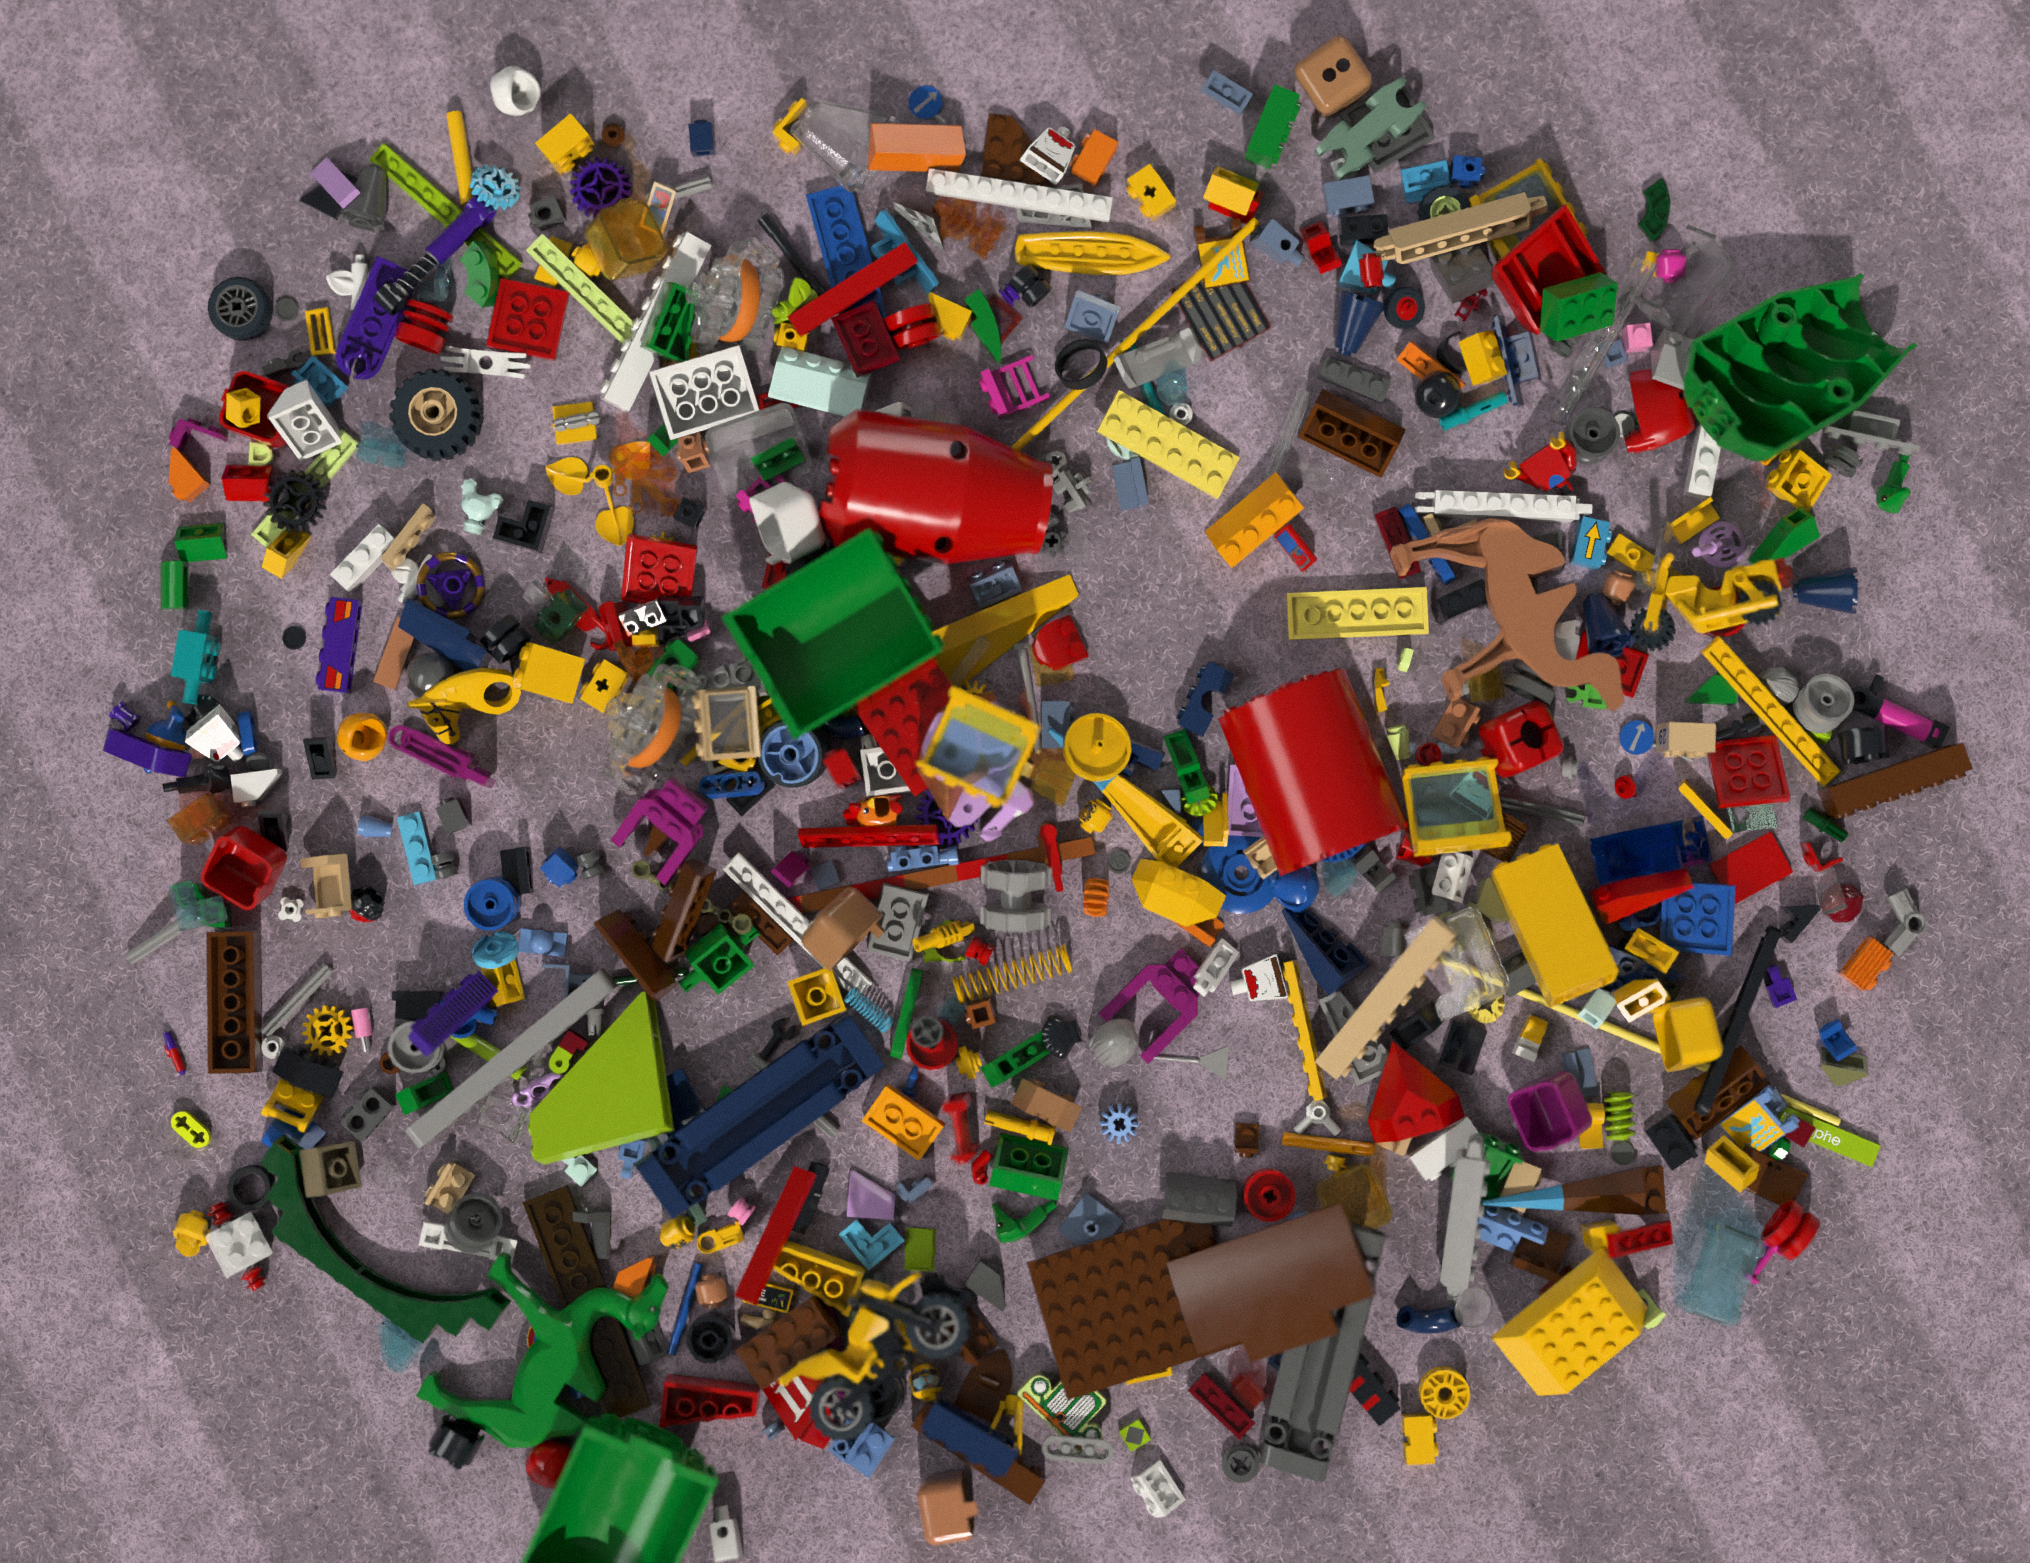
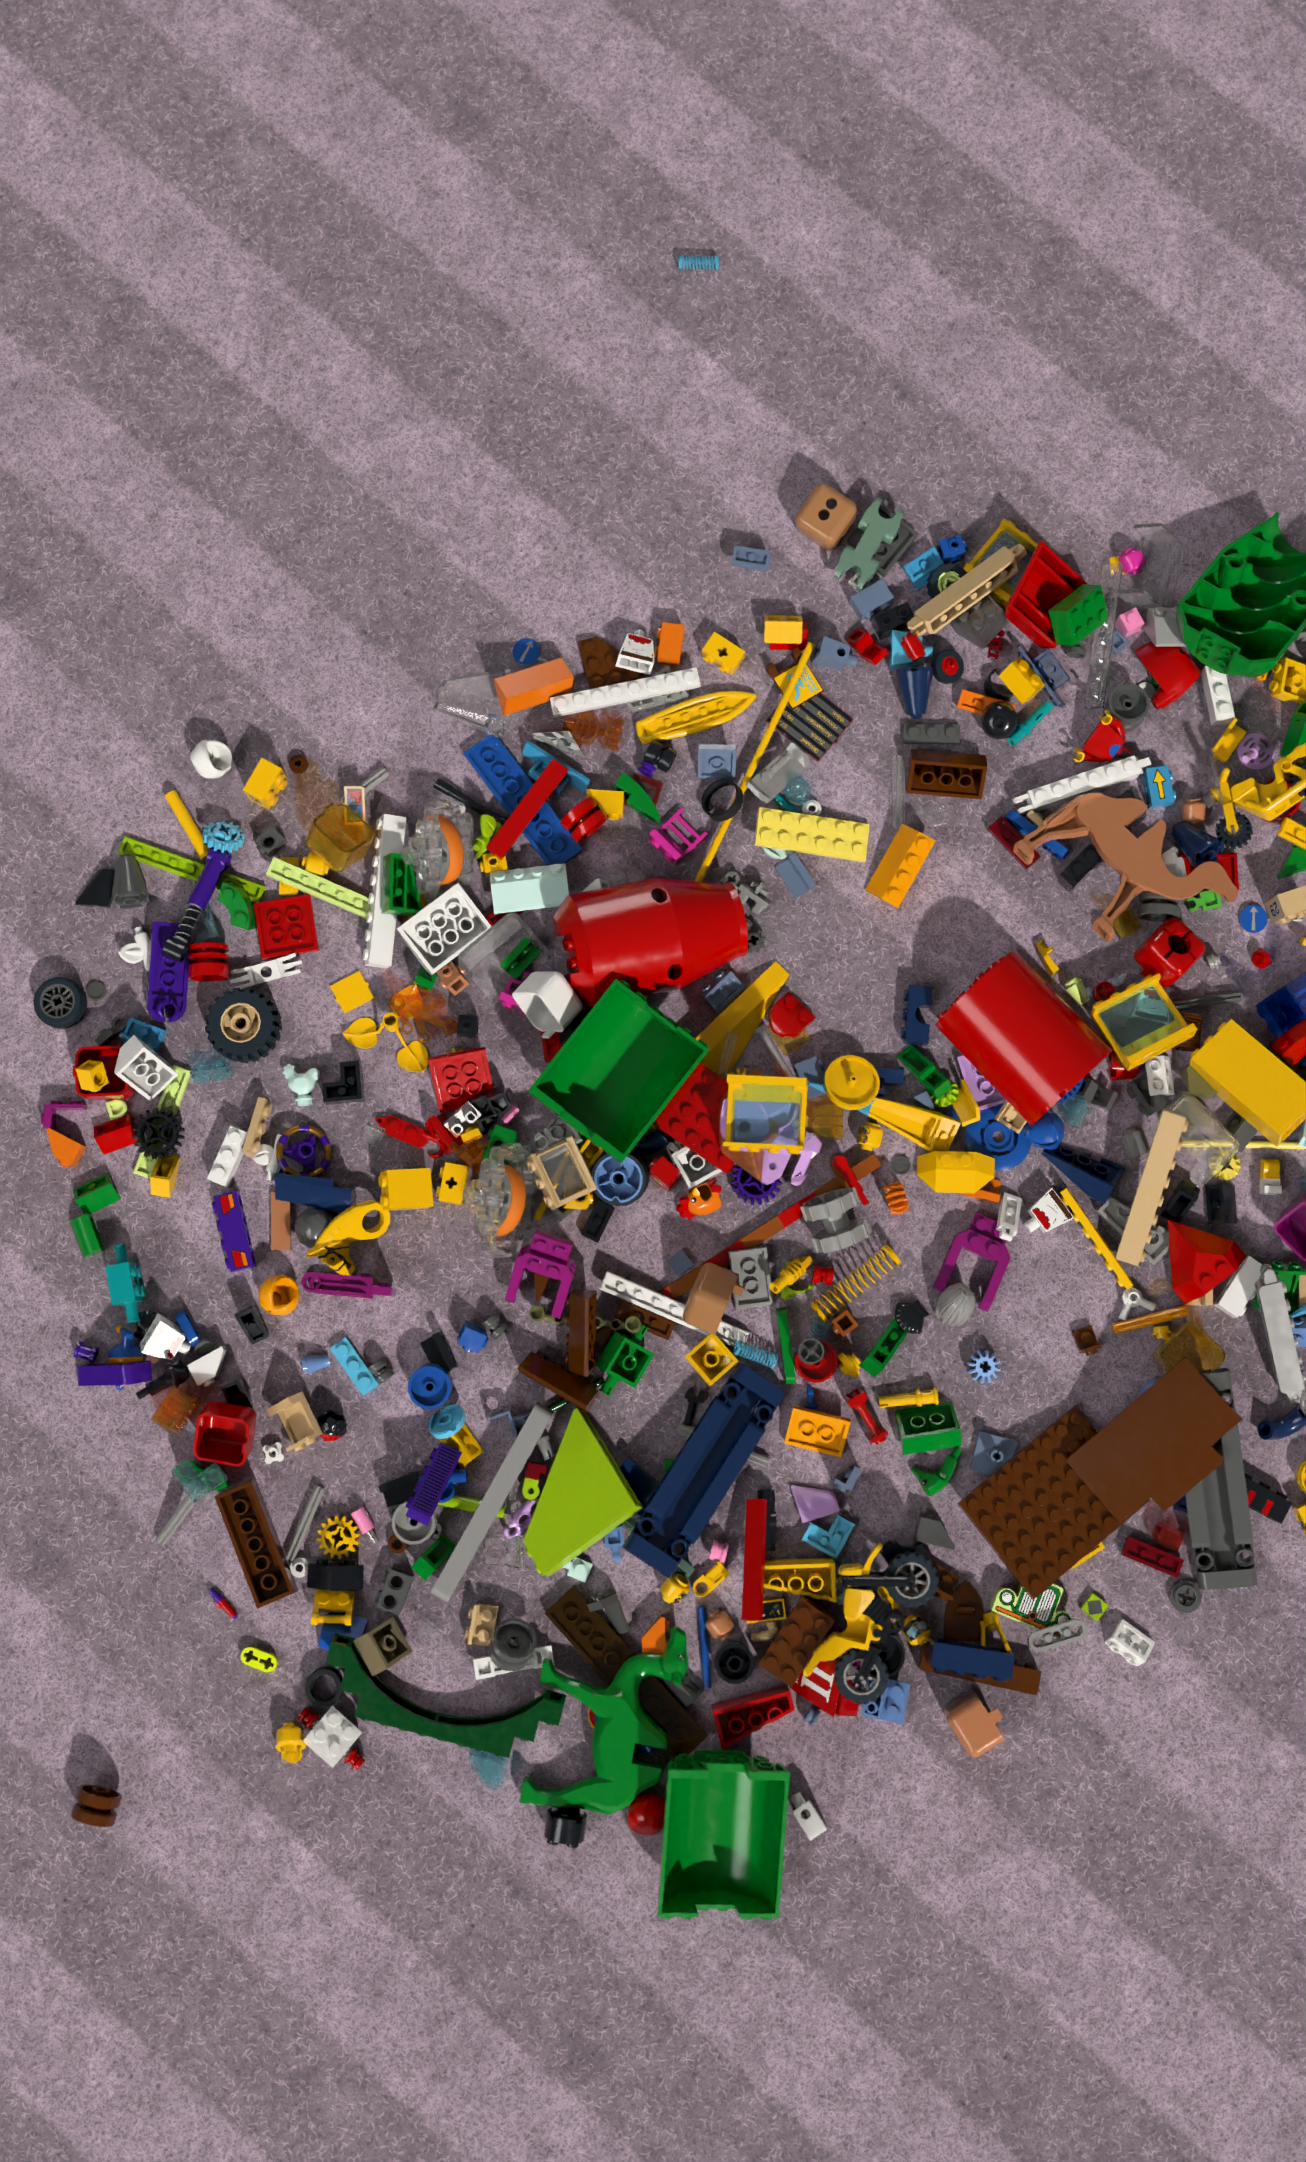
camera: 25 degrees left, 5 degrees down
(294, 638) = (196, 1240): black piece -> none
(317, 312) = (136, 1010): yellow tile -> none
(335, 183) = (99, 879): lavender tile -> none
(453, 815) = (373, 1329): dark grey brick -> none
(505, 639) = (362, 1176): black wheel -> none
(543, 942) = (481, 1401): medium blue tile -> none
(560, 616) = (405, 1134): clear green brick -> none
(577, 421) = (353, 989): light grey axle -> none
(591, 188) = (298, 809): dark purple gear -> none
(701, 138) = (367, 741): dark blue brick -> none
(740, 789) = (589, 1221): blue beam -> none
(786, 141) = (432, 719): yellow bracket -> none
(791, 868) = (653, 1267): magenta slope -> none
(865, 339) = (552, 842): dark red plate -> none
(869, 836) = (703, 1219): red tile -> none
(916, 856) = (745, 1221): medium blue brick -> none
(920, 1249) = (868, 1526): lime piece -> none
(978, 1167) = (889, 1444): red arm -> none
(1051, 1107) = (922, 1374): medium nougat brick -> none
(1199, 1199) = (1070, 1401): dark grey slope -> none
(1215, 1062) = (1036, 1290): light grey piece -> none
(1271, 1208) = (1133, 1376): red wheel -> none
(1273, 127) = (796, 570): green brick -> none
(1295, 547) = (939, 875): slope -> none
(1357, 613) = (1005, 906): light yellow plate -> none
(1405, 659) = (1056, 927): yellowish green tile -> none
(1456, 722) = (1114, 960): nougat bracket -> none
(1630, 554) = (1192, 784): yellow plate -> none
(1657, 212) = (1104, 525): dark green tile -> none

